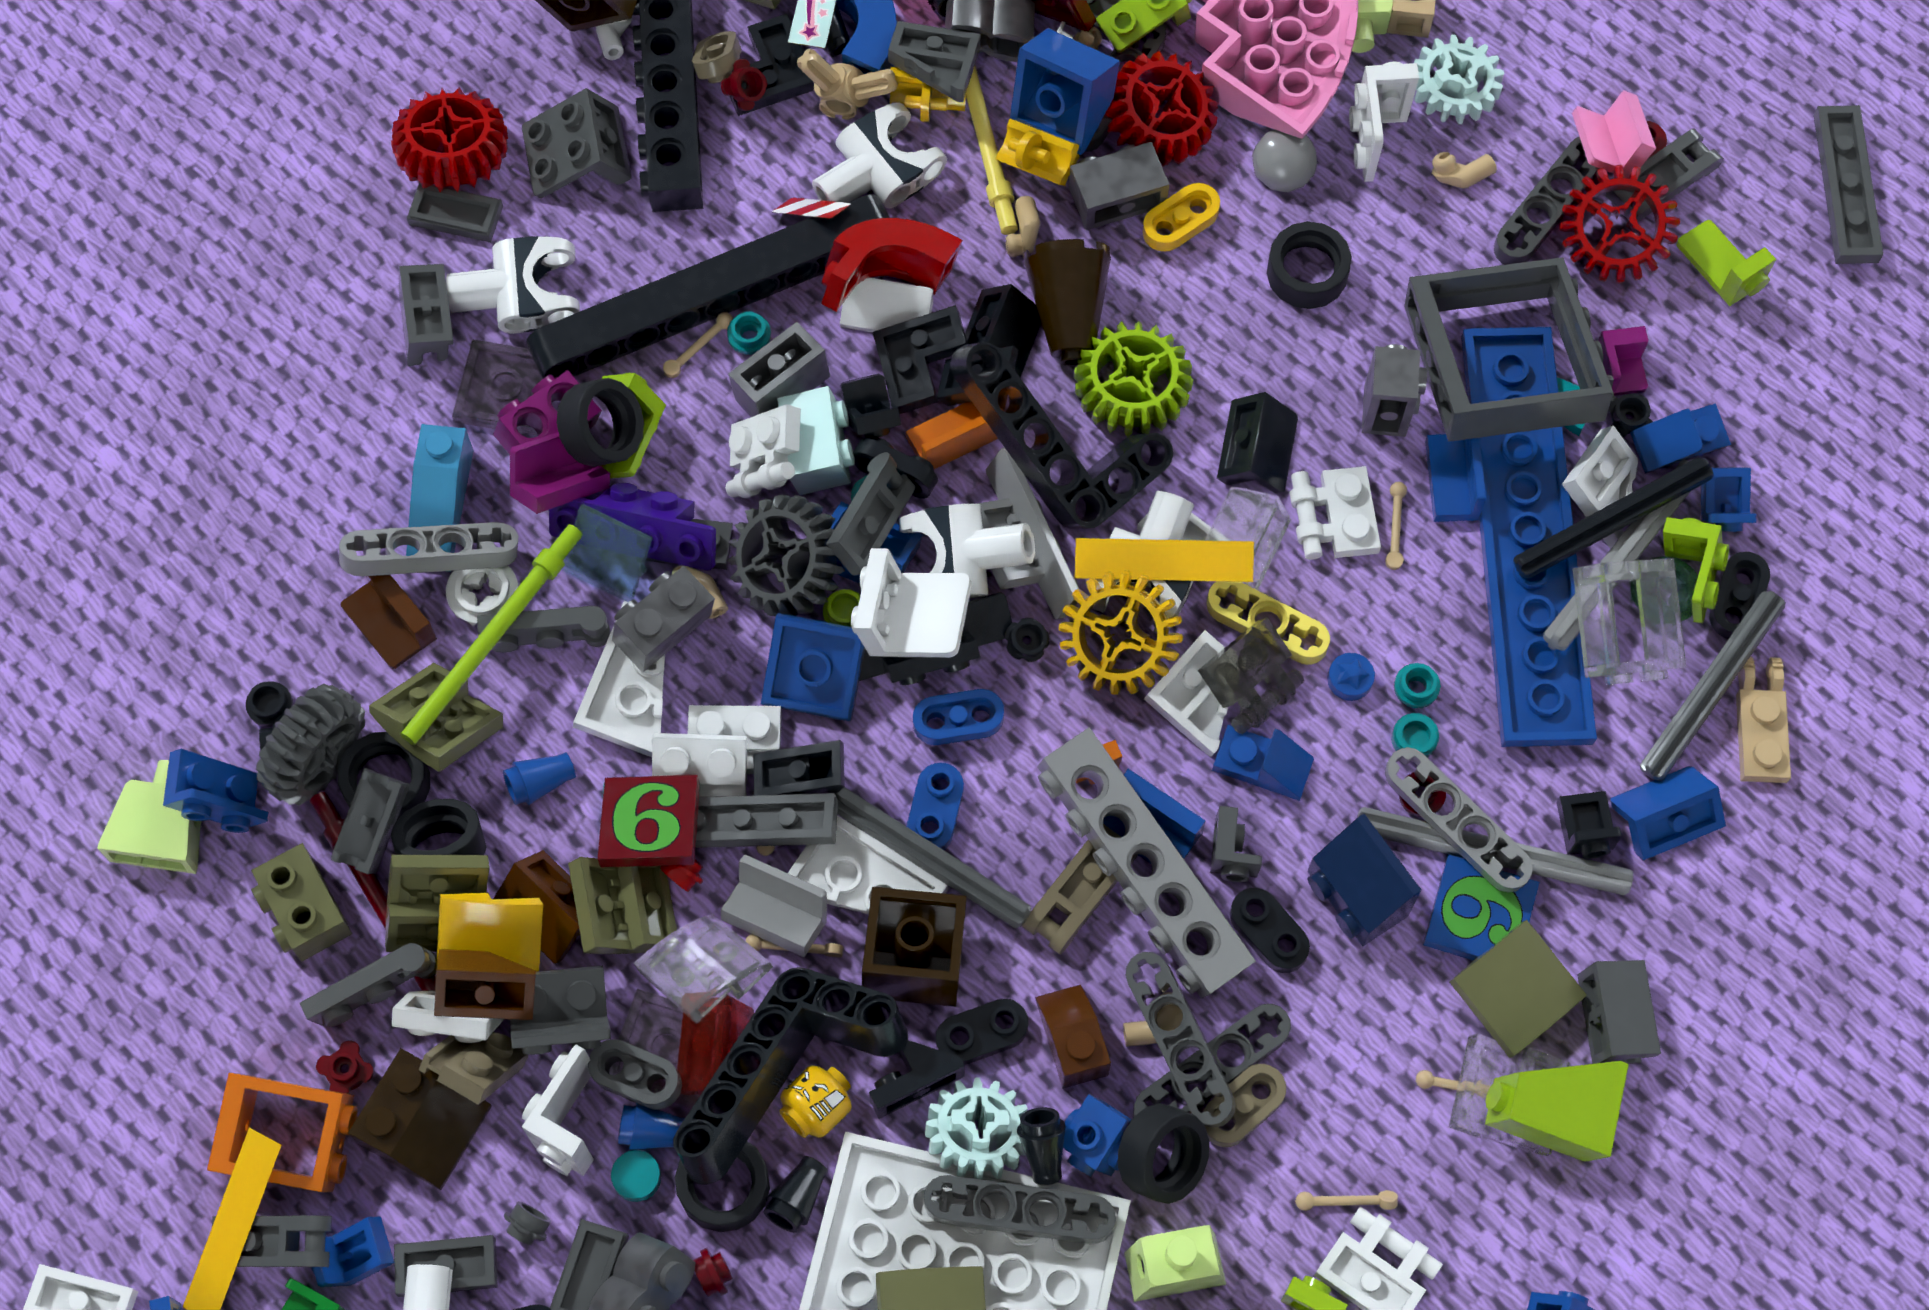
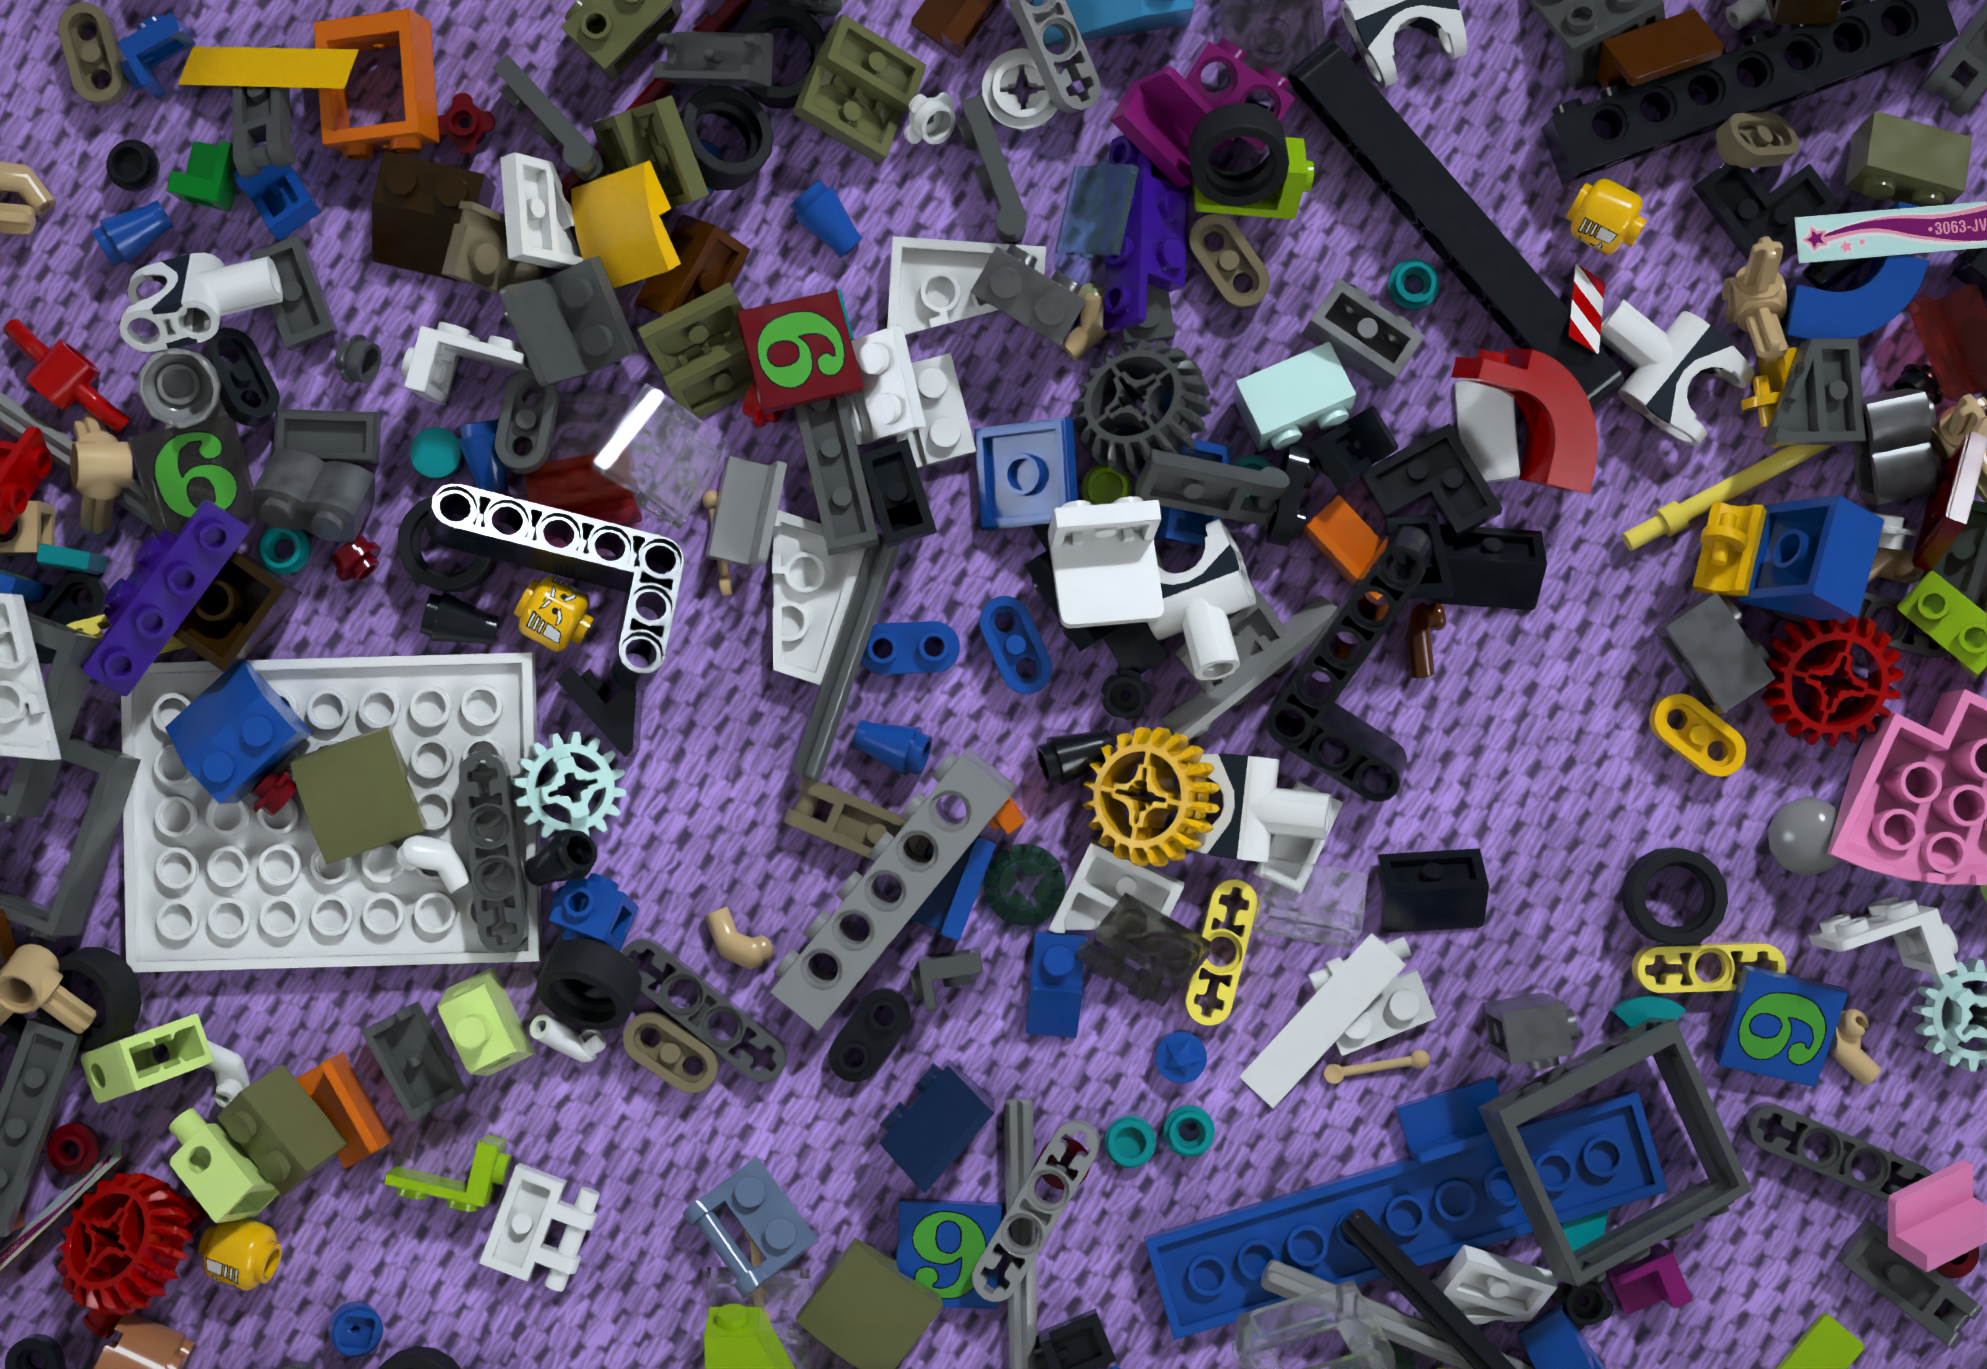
camera: 70 degrees right, 20 degrees up
(483, 986) = (563, 234): reddish brown slope -> none
(488, 672) = (930, 119): none -> white plate
(546, 566) = (1056, 150): lime bar -> none
(622, 105) = (1657, 50): none -> reddish brown panel
(672, 367) = (1349, 212): tan hinge -> none
(682, 463) = (1232, 260): none -> dark tan plate
(741, 177) = (1606, 216): none -> yellow head
(755, 84) = (1722, 197): dark red plate -> none
(762, 440) = (1275, 341): white plate -> none
(914, 945) = (742, 668): dark brown slope -> none
(983, 1033) = (679, 762): black plate -> none
(1008, 1263) = (434, 855): none -> white arm
(1018, 839) = (896, 746): none -> blue cone
(1028, 227) = (1637, 563): tan arm -> none
(1051, 401) = (1418, 638): none -> reddish brown arm
(1067, 696) = (1069, 755): none -> black cone
(1068, 293) = (1550, 634): dark brown cone -> none
(1073, 1036) = (698, 857): reddish brown slope -> none
(1155, 359) = (1491, 749): lime gear -> none
(1165, 559) = (1247, 824): yellow sticker -> none
(1175, 1041) = (718, 978): dark grey beam -> none
(1188, 775) = (1001, 877): none -> clear green gear
(1208, 1202) = (562, 1038): none -> white arm
(1347, 553) = (1322, 1020): none -> white sticker
(1385, 244) = (1670, 954): none -> light yellow beam
(1386, 1200) = (615, 1219): tan hinge -> none
(1395, 314) = (1640, 1008): none -> teal tile
(1412, 1059) = (766, 1217): none -> sand blue plate
(1433, 214) = (1780, 1025): none -> blue tile
(1635, 236) = (1843, 1255): red gear -> none

